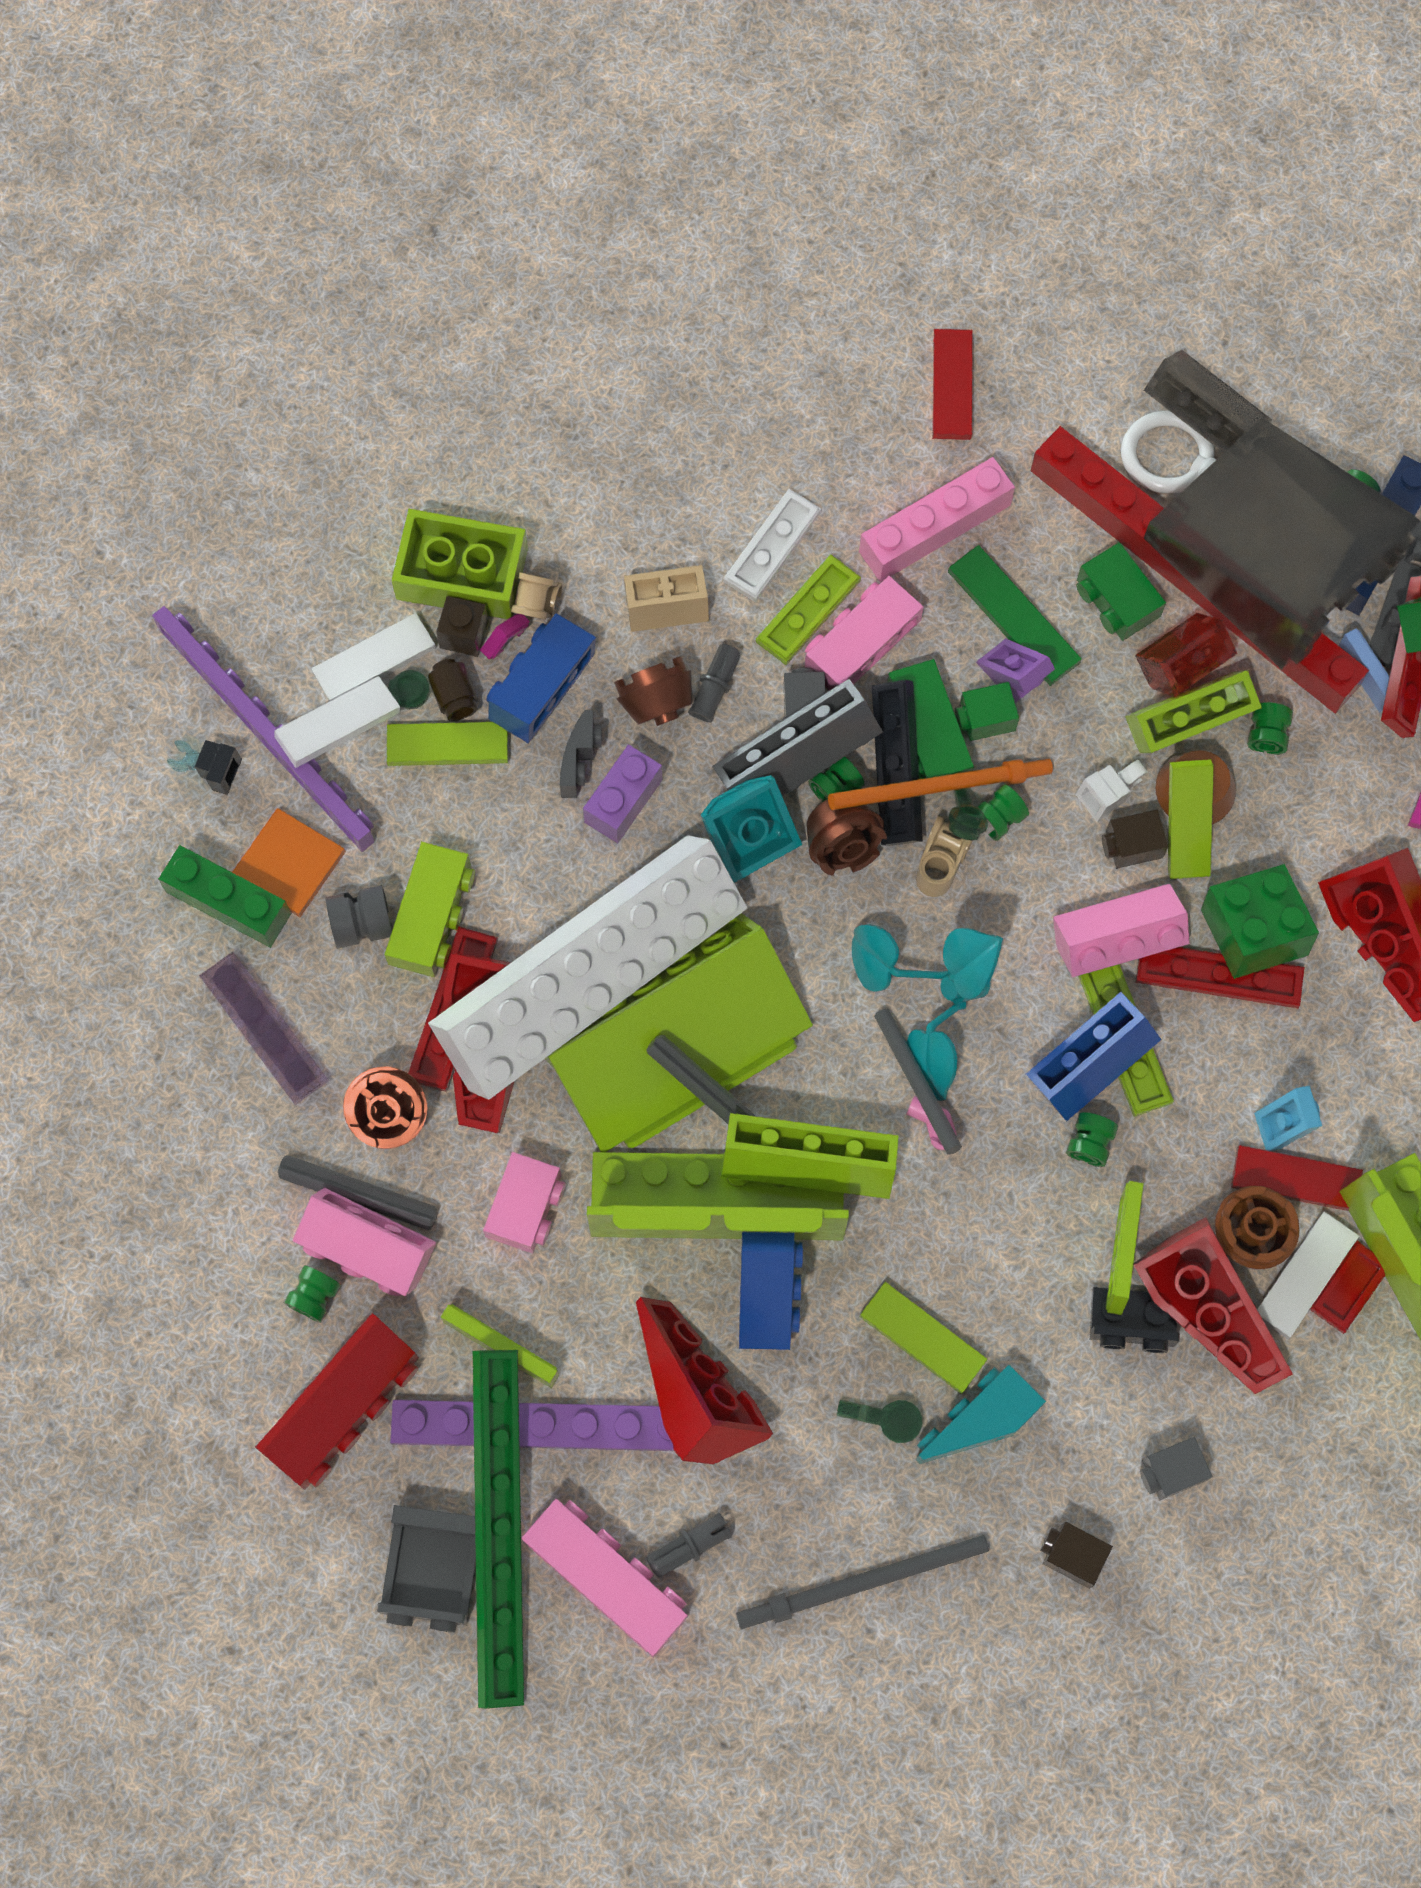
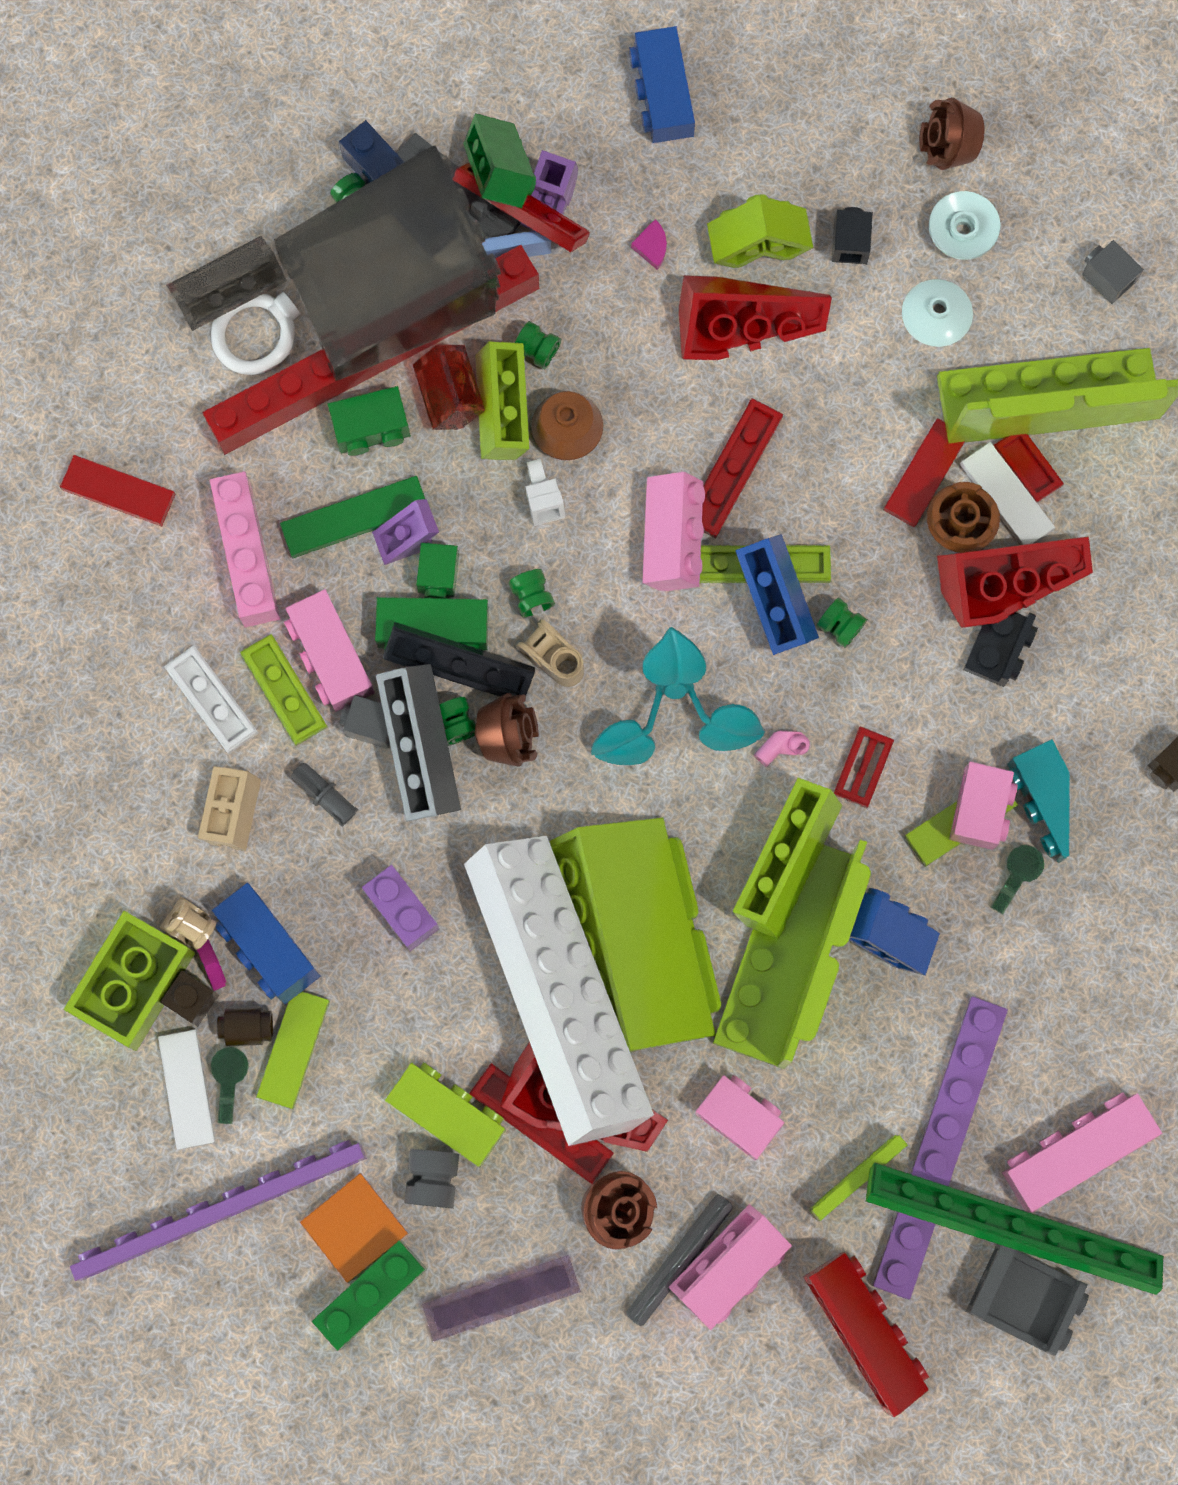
camera: 70 degrees left, 5 degrees up
(214, 763) = (236, 1267): black piece -> none
(311, 1292) = (759, 1328): green wheel -> none
(336, 721) = (243, 1141): white tile -> none
(580, 746) = (340, 928): dark grey slope -> none
(656, 692) = (318, 846): copper cone -> none
(688, 1545) = (1074, 1073): dark grey axle -> none
(695, 1078) = (690, 928): dark grey axle -> none
(695, 1399) = (965, 1024): red wedge -> none
(750, 826) = (474, 807): teal slope -> none
(781, 1607) = (1147, 1015): dark grey bar -> none
(918, 1081) = (745, 746): dark grey bar -> none
(944, 1349) = (983, 805): none -> bright pink brick
(947, 1232) = (852, 795): none -> red tile
(965, 819) = (533, 623): clear green plate -> none
(1009, 772) = (498, 573): orange bar -> none
(1124, 1248) = (944, 629): lime tile -> none
(1135, 839) = (595, 491): dark brown brick -> none
(1175, 1469) = (1135, 657): dark grey brick -> none
(1190, 819) = (599, 438): lime tile -> none
(1259, 921) = (704, 417): green brick -> none
(1288, 1118) = (882, 458): medium azure hinge -> none

